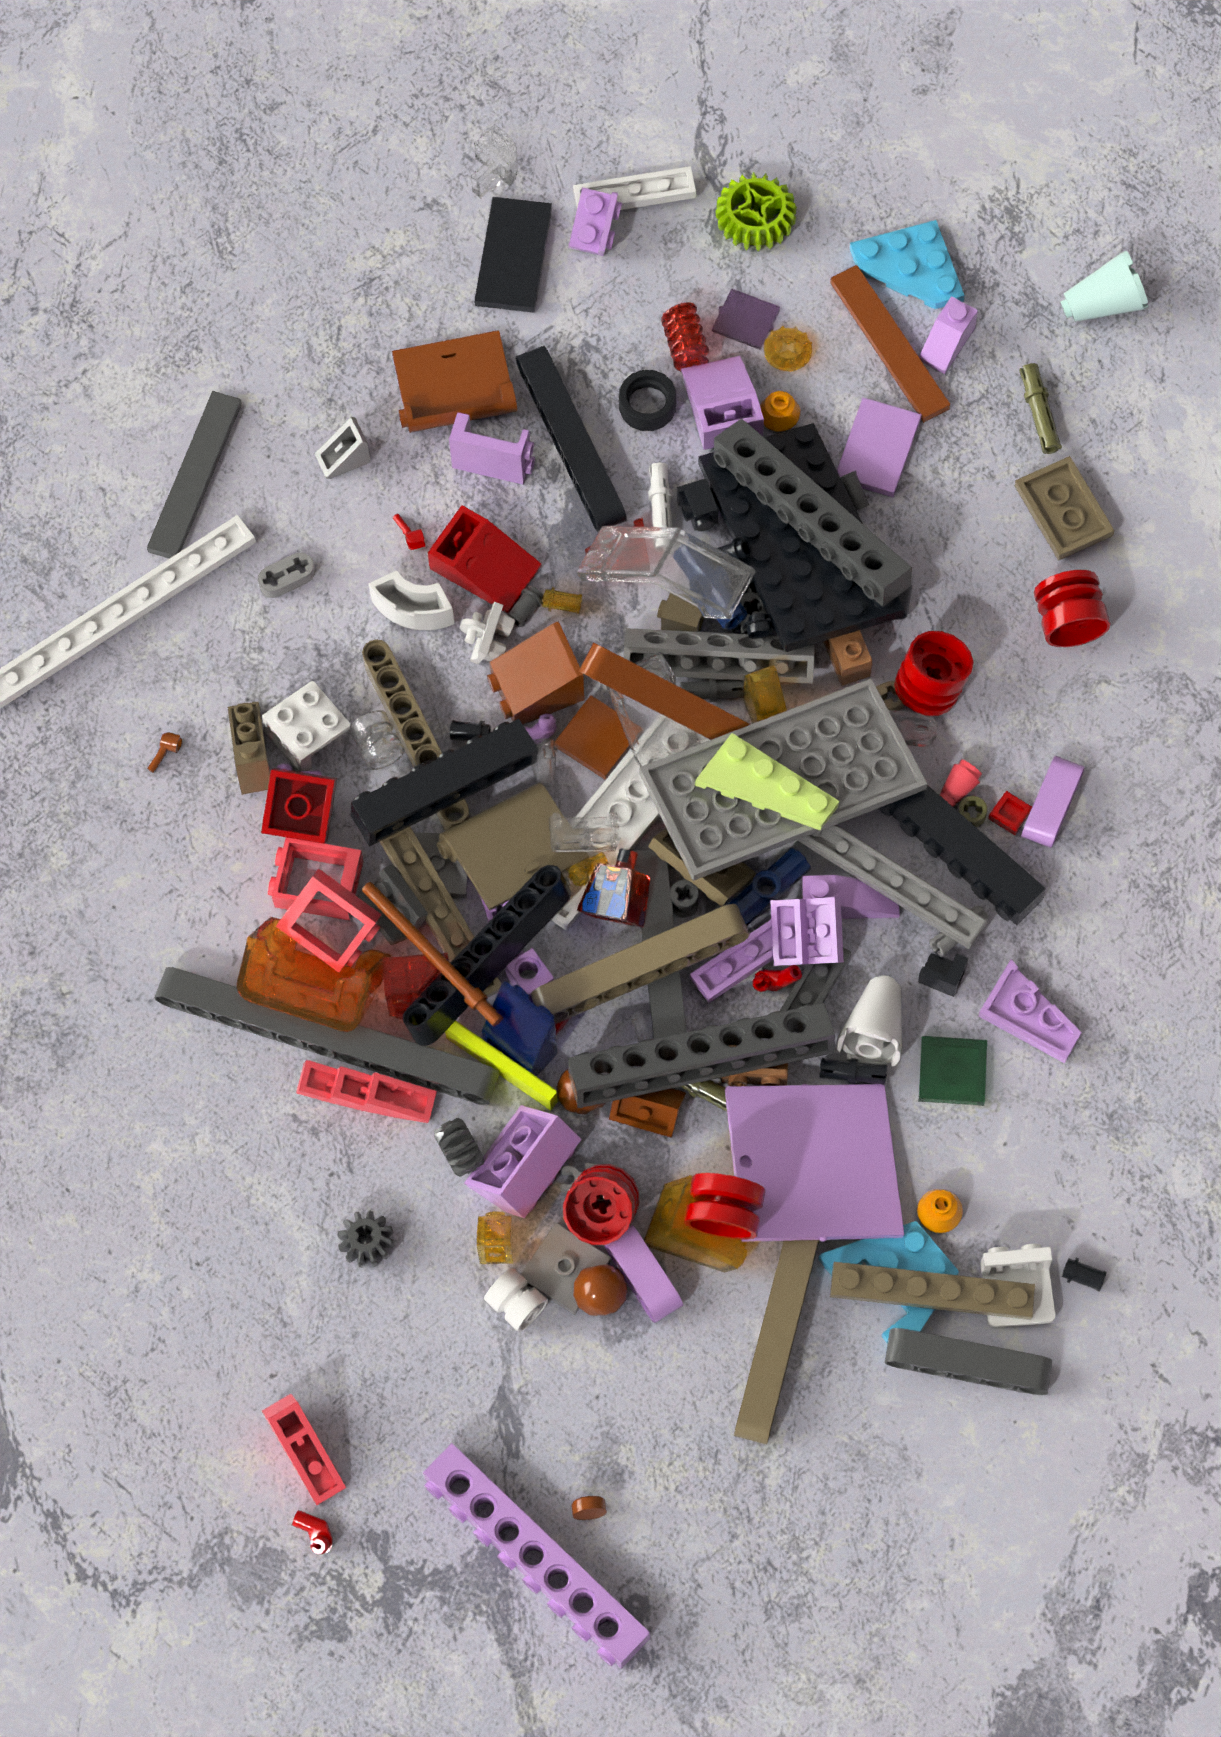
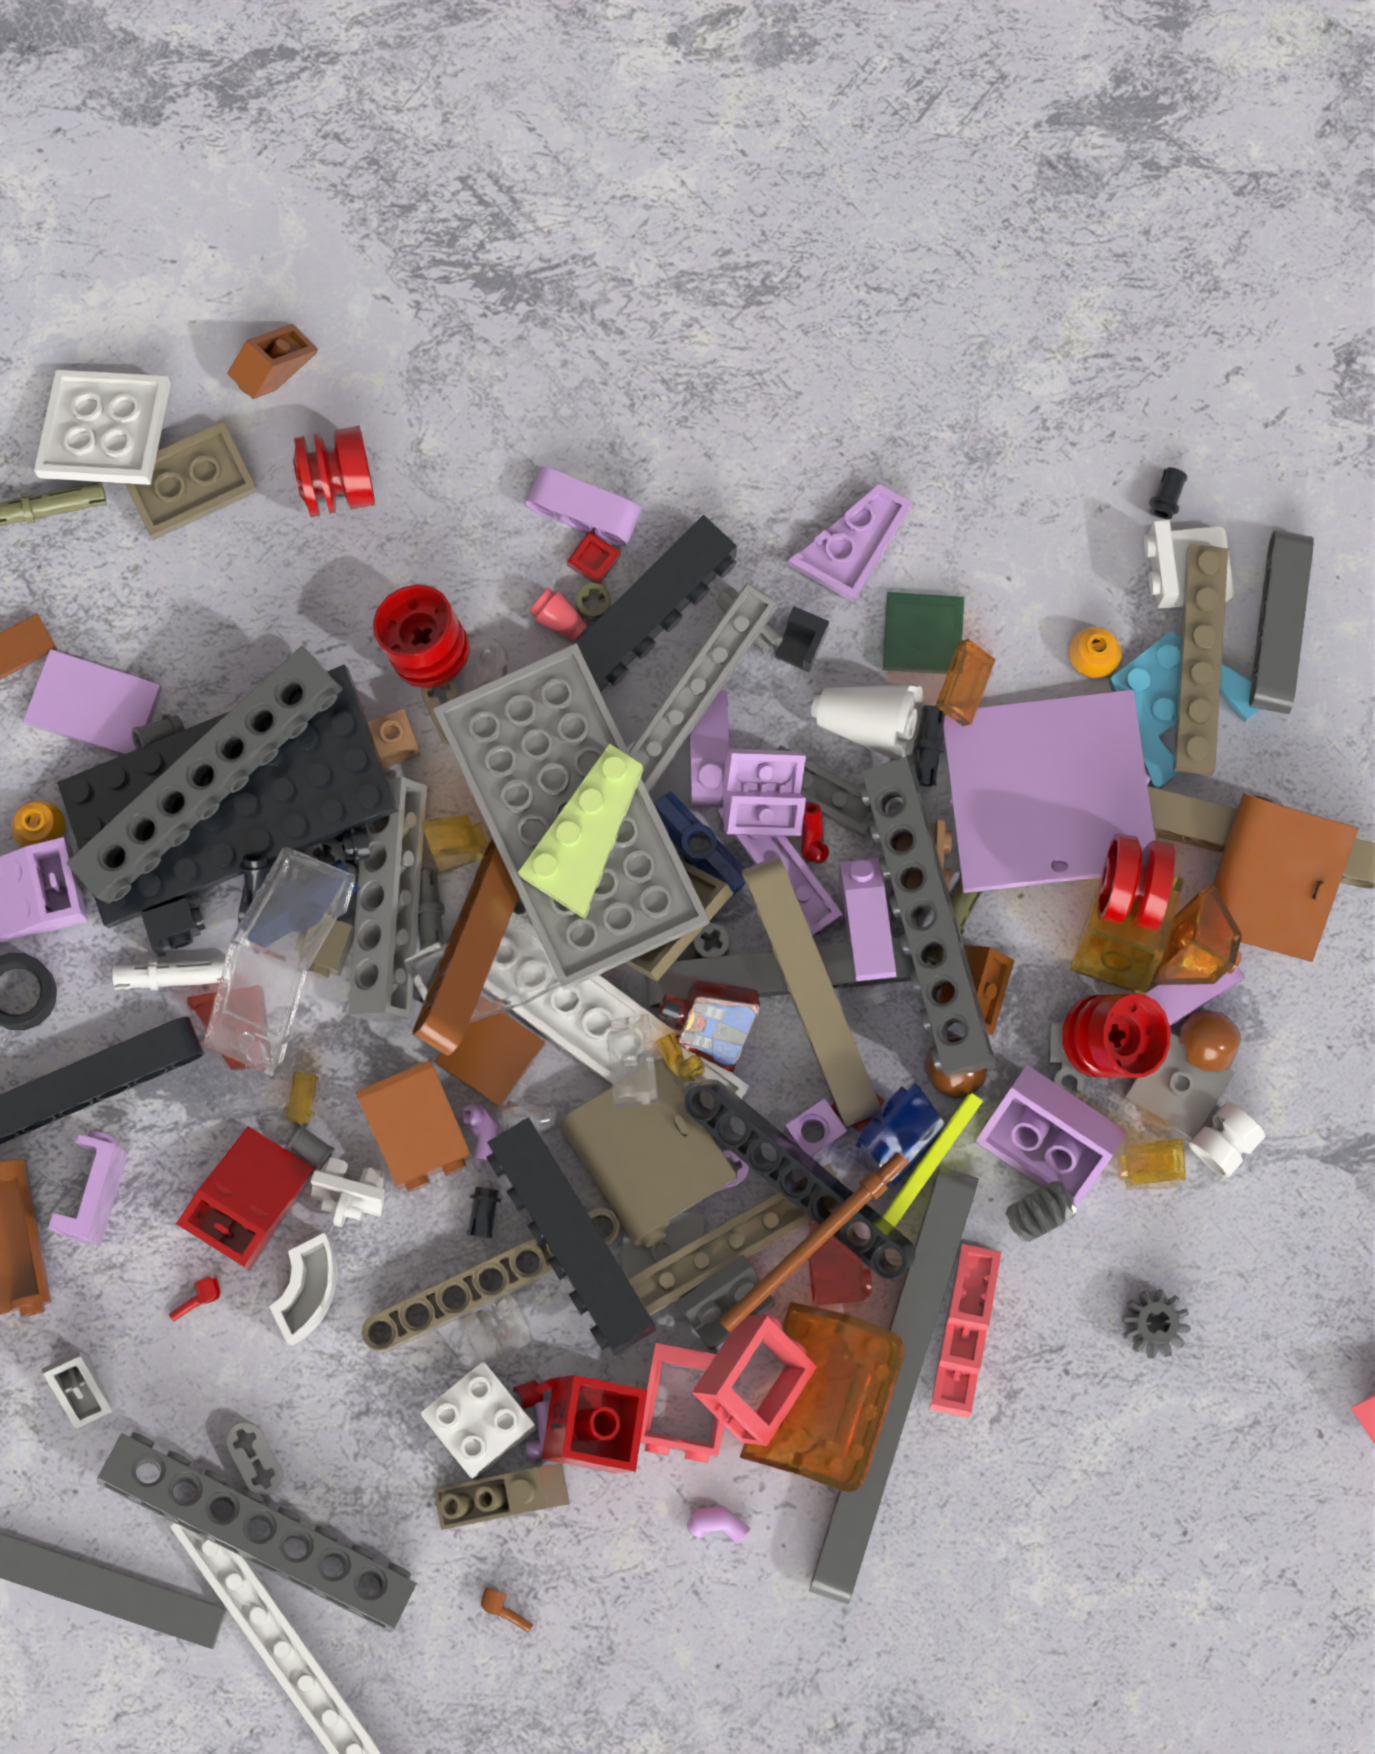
camera: 95 degrees left, 10 degrees up
(225, 904) = (714, 1519): none -> lavender arm
(274, 473) = (232, 1534): none -> dark grey brick
(327, 766) = (532, 1391): none -> red hand
(677, 1274) = (1200, 943): none -> clear orange slope
(698, 1008) = (867, 919): none -> lavender slope
(737, 1337) = (1272, 872): none -> door
(908, 1099) = (965, 682): none -> clear orange tile
(1104, 442) = (102, 427): none -> white plate
(1168, 565) = (271, 360): none -> dark orange slope

